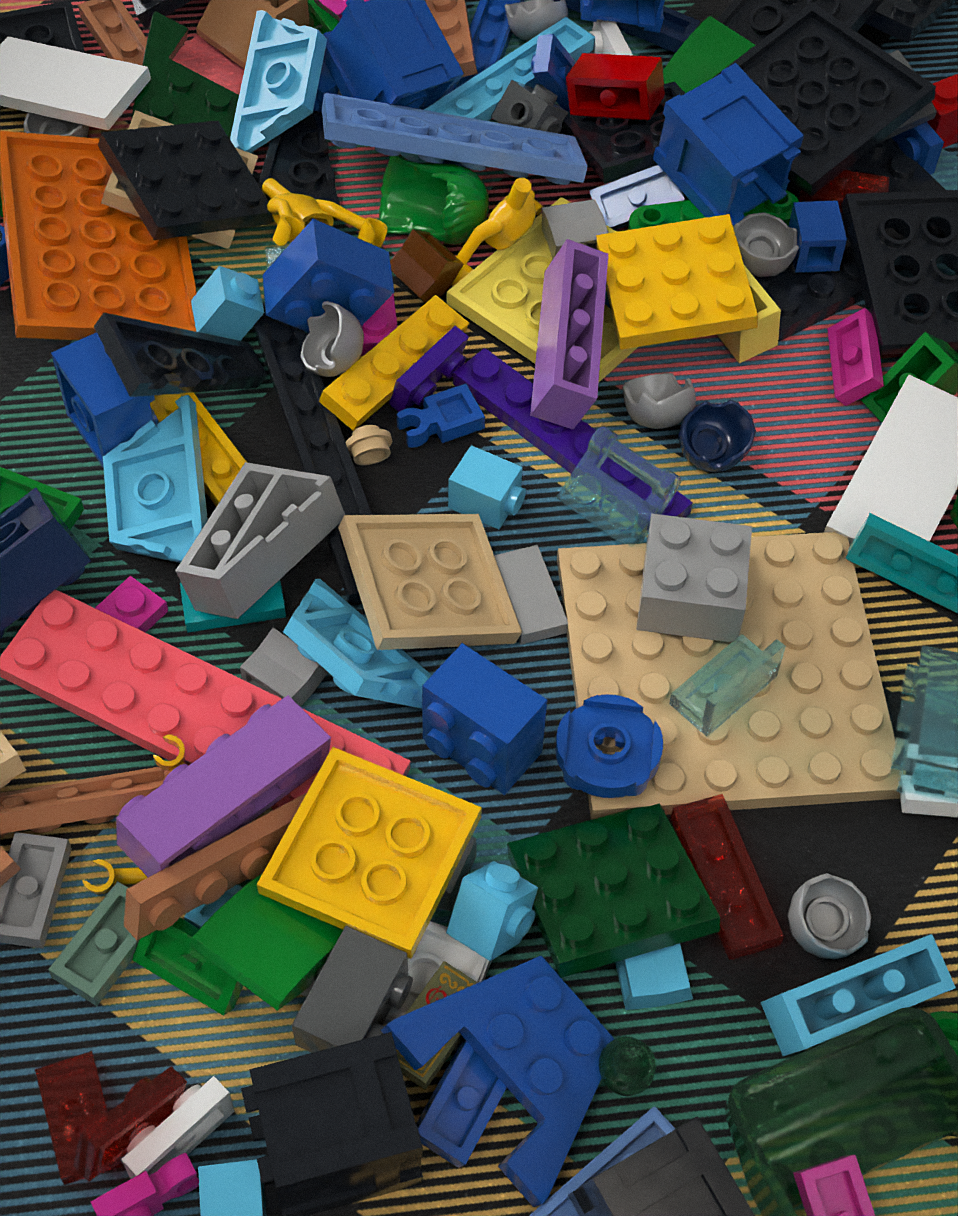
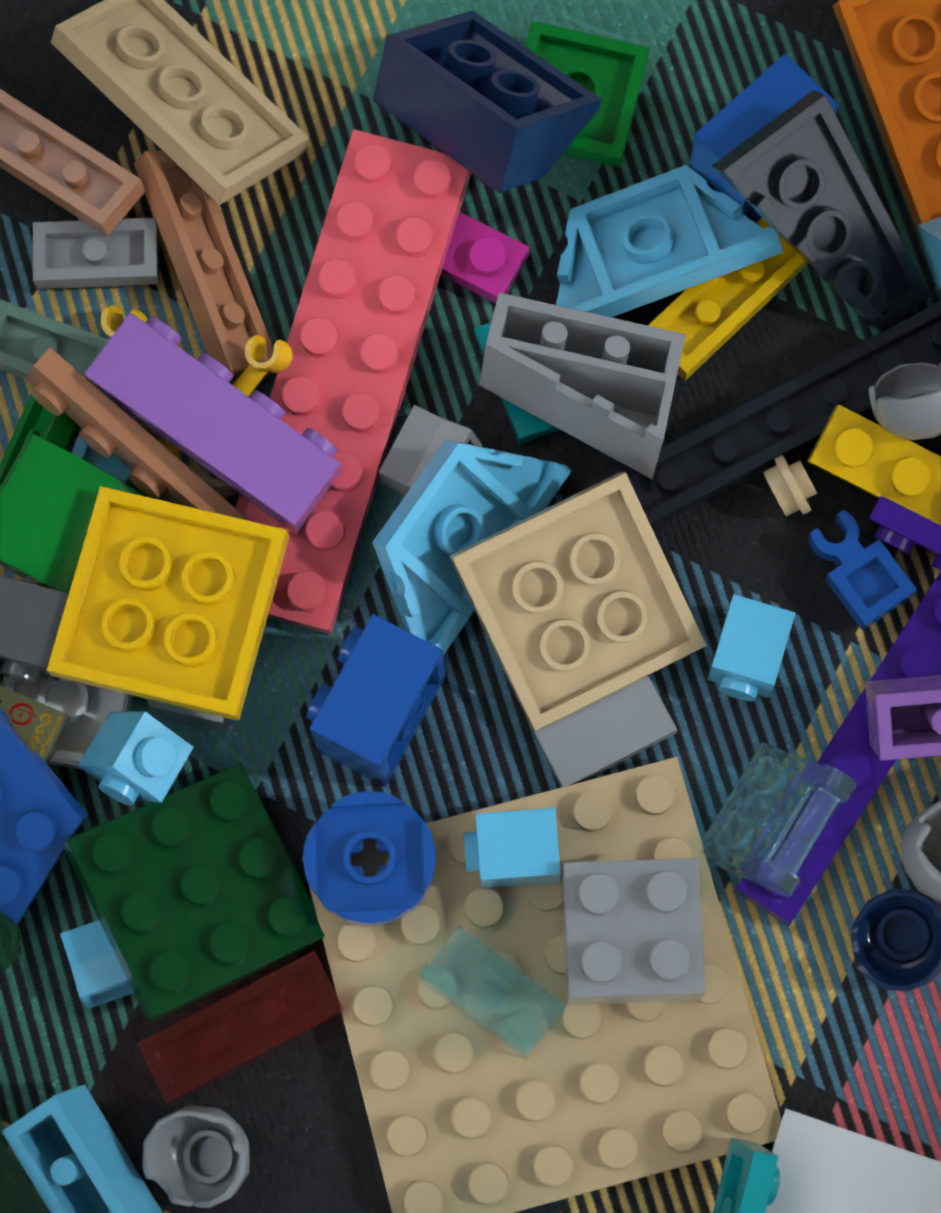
camera: 85 degrees right, 20 degrees up
(618, 642) = (514, 848): none -> medium azure brick

